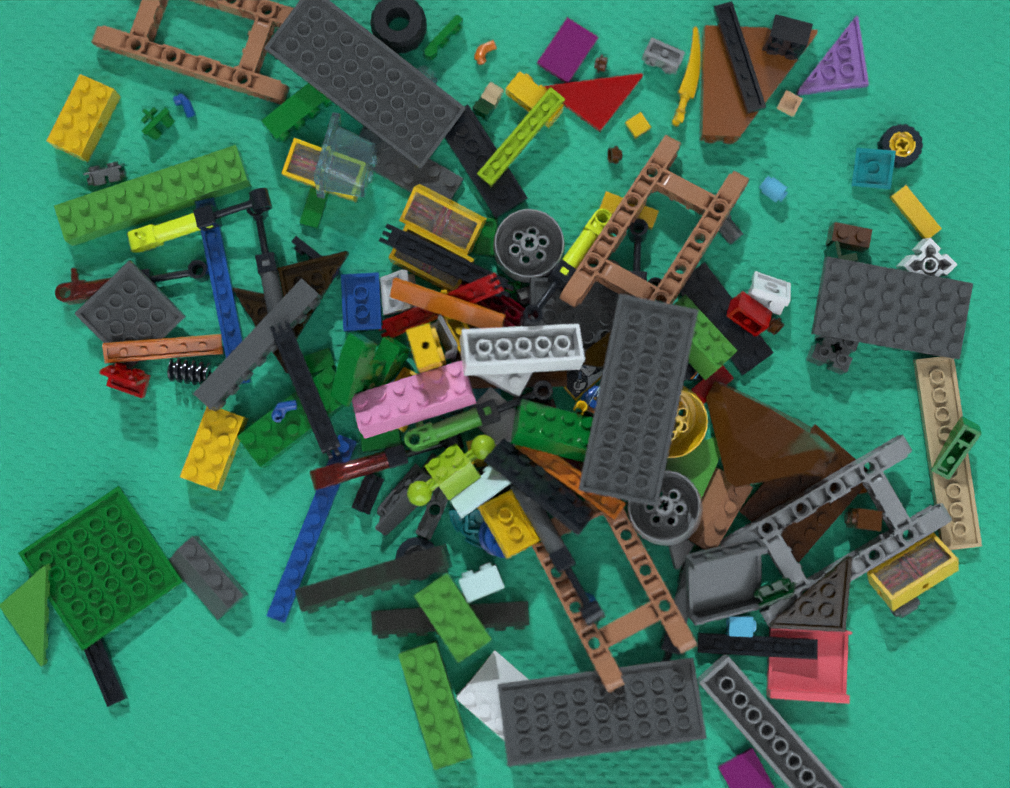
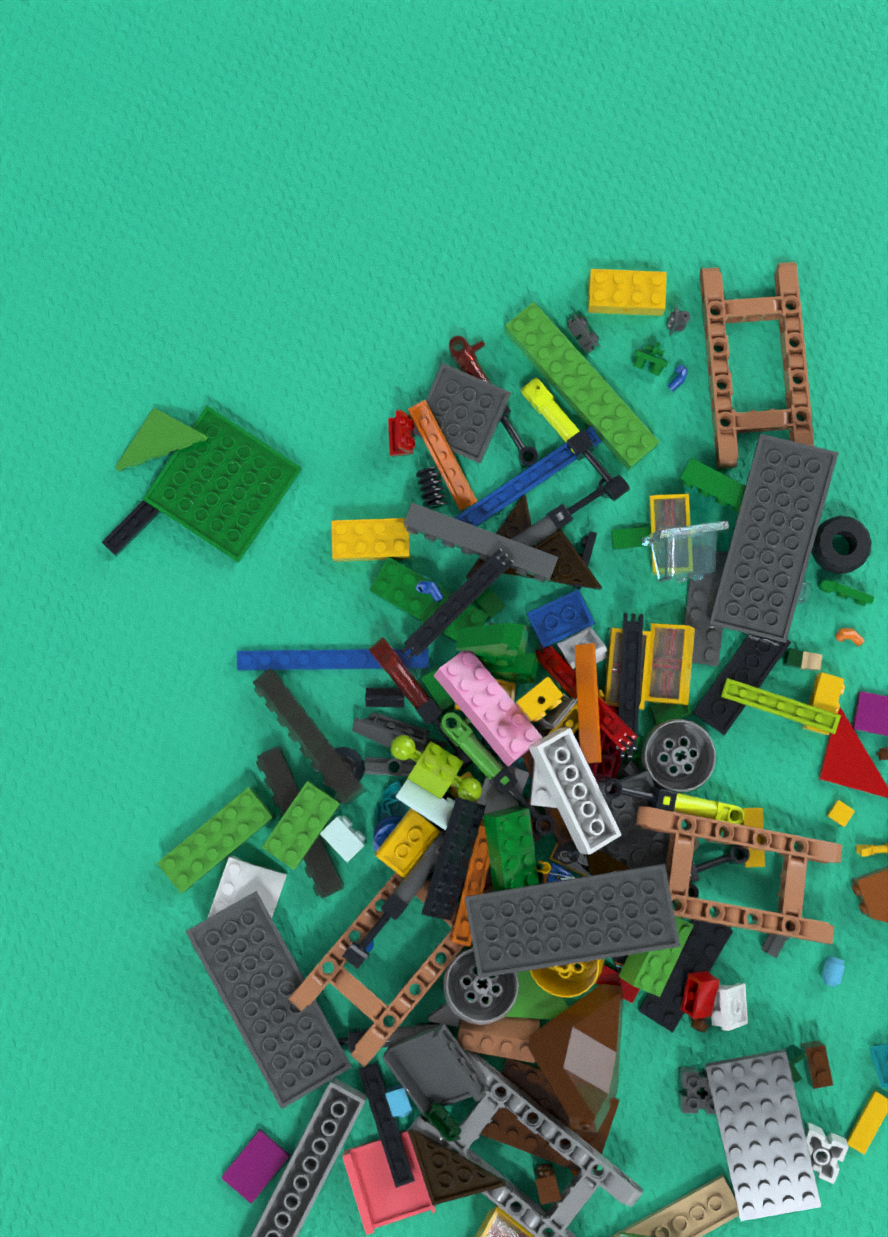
camera: 75 degrees right, 0 degrees up
(130, 82) = (677, 320): none -> dark grey hinge
(207, 577) = (251, 582): dark grey slope -> none
(614, 155) = (801, 802): reddish brown plate -> none

